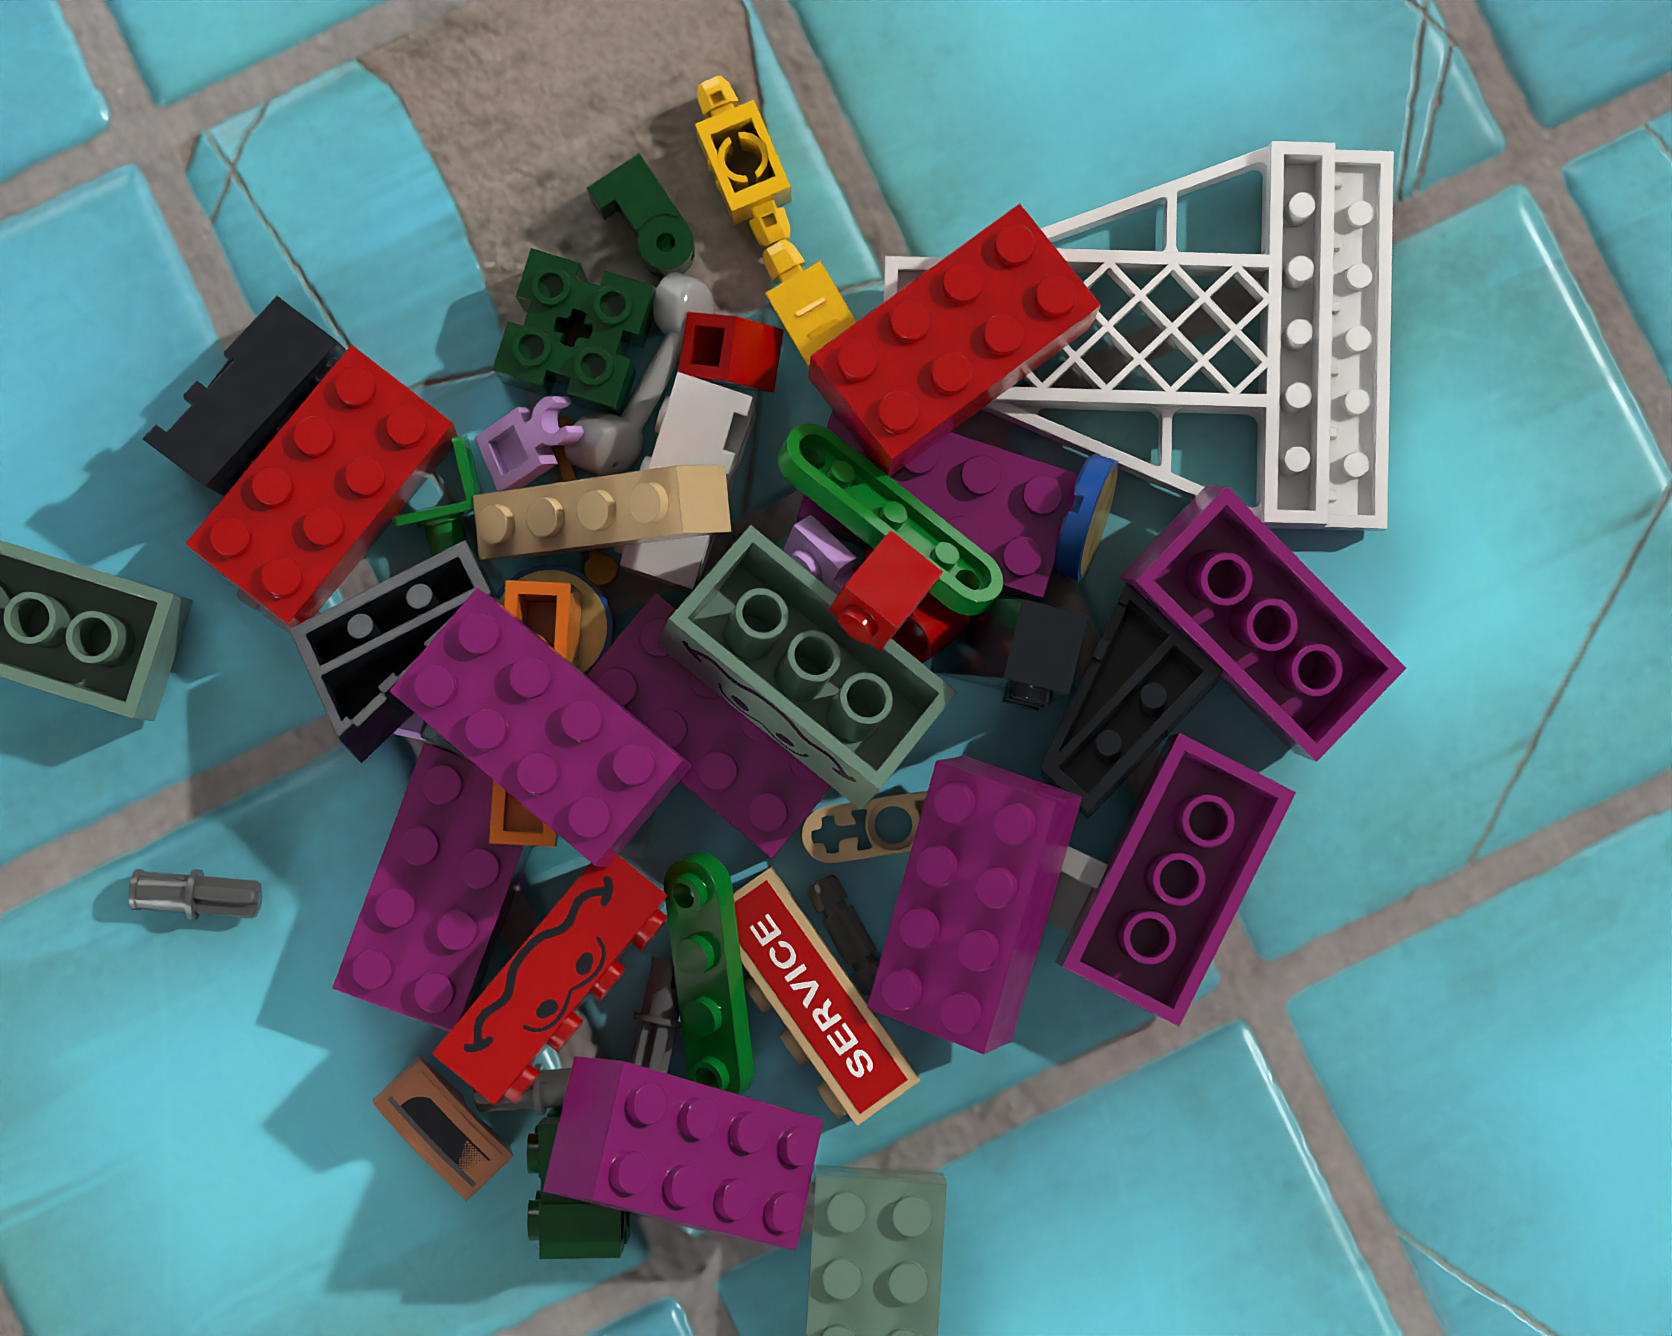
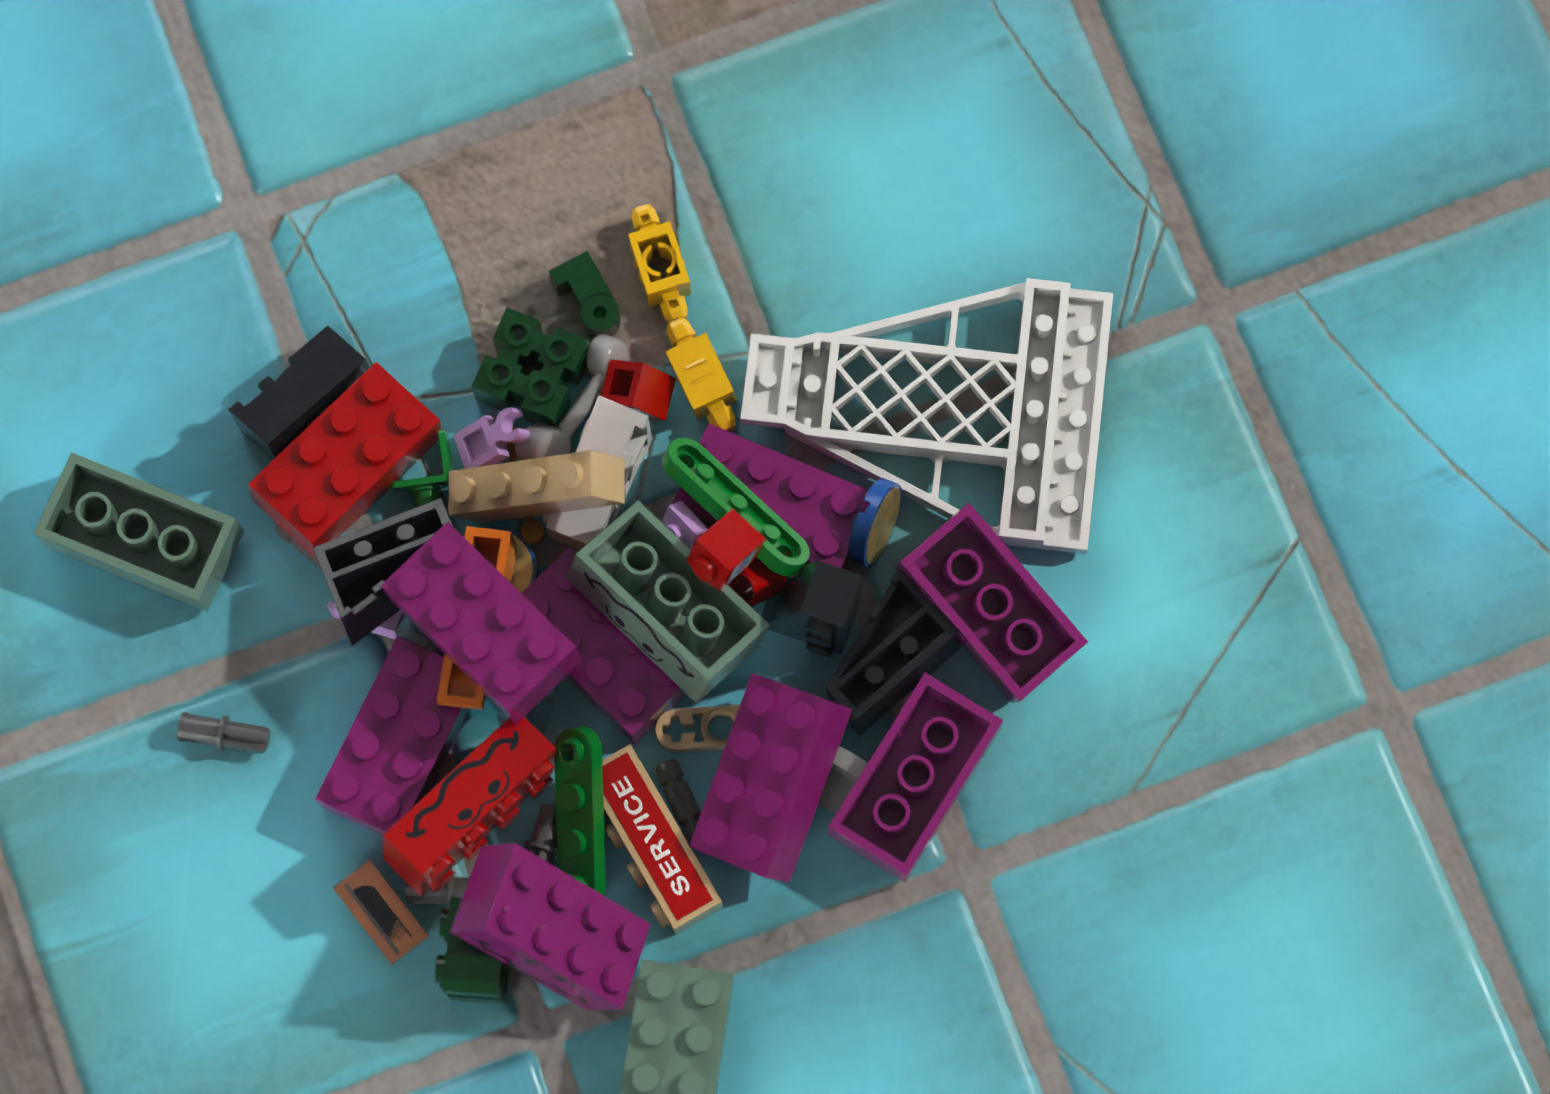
camera: 10 degrees right, 10 degrees down
(953, 340) = (789, 391): red brick -> none

